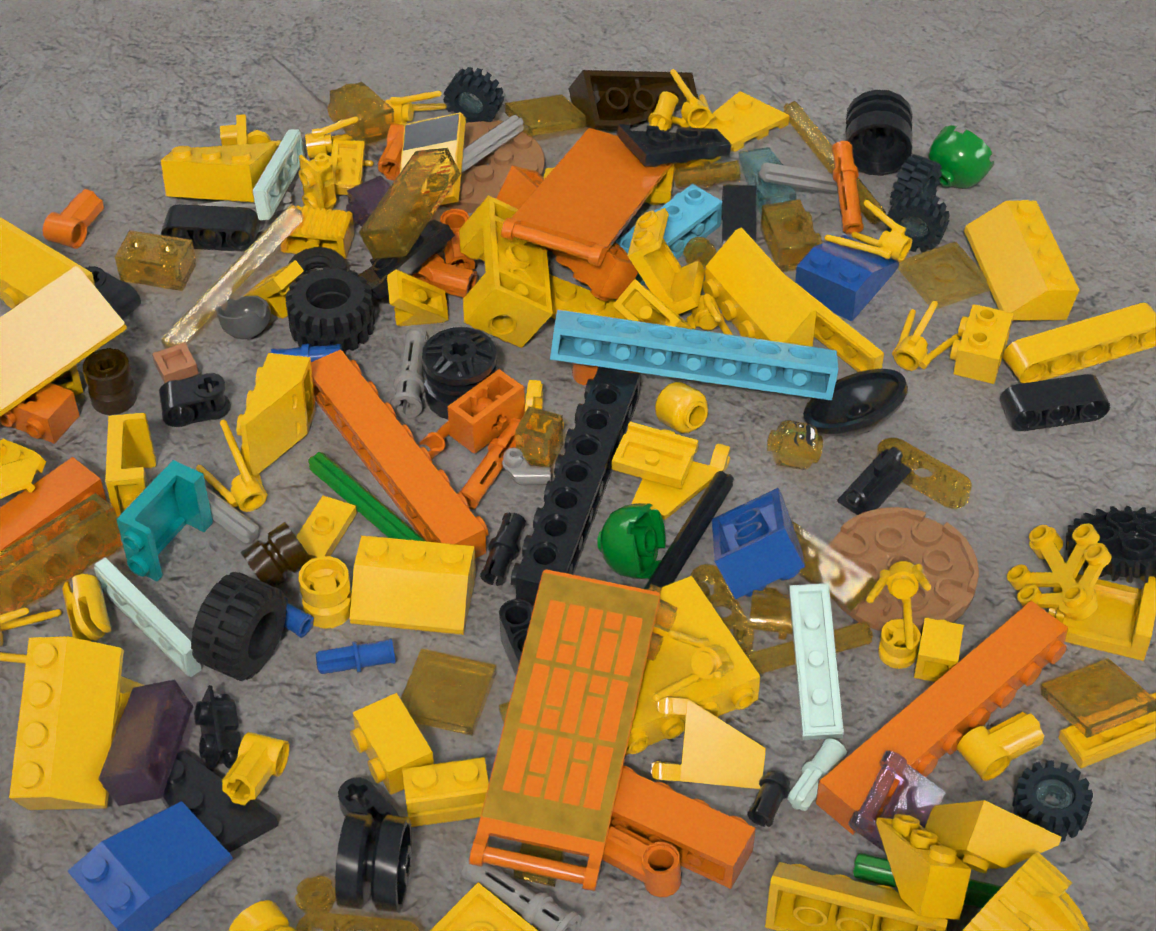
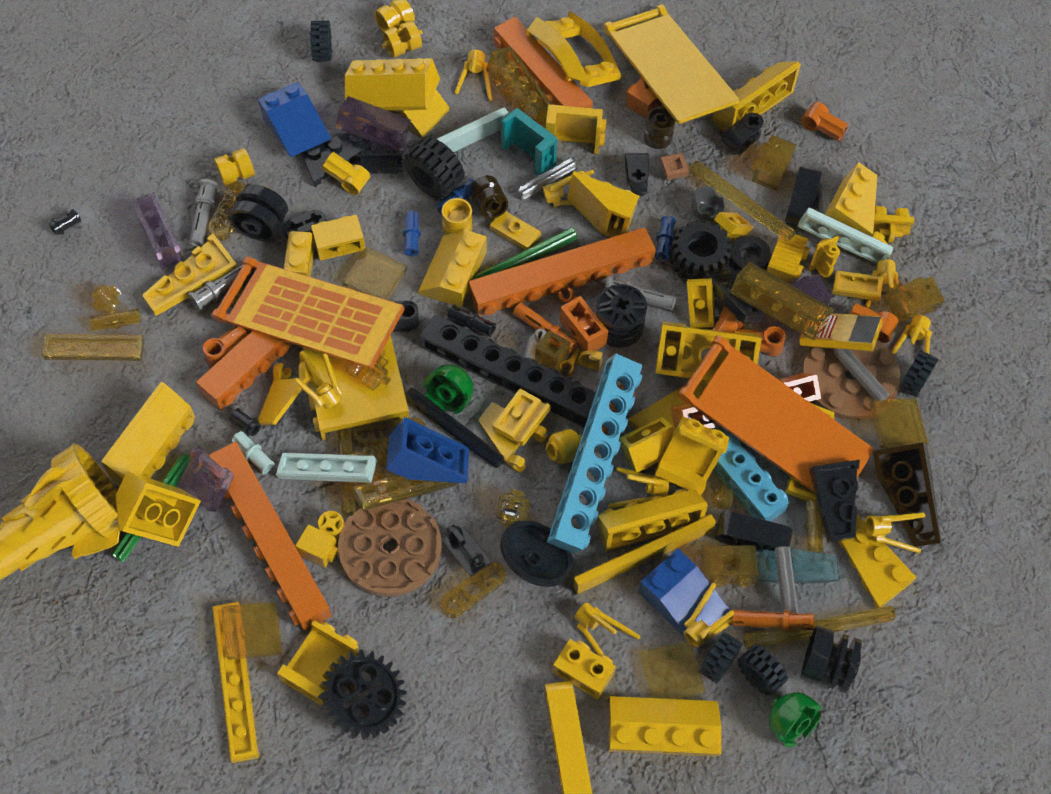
camera: 100 degrees right, 15 degrees up
(86, 608) = (479, 106): yellow arm -> none
(664, 111) = (880, 504): yellow axle -> none
(902, 583) = (361, 528): yellow plant -> none
(924, 870) = (149, 464): yellow slope -> none
(993, 749) = (236, 555): yellow piece -> none
(1054, 402) = (513, 701): black beam -> none
(1073, 794) = (189, 590): black bush -> none
(1077, 600) = (316, 629): yellow plant -> none

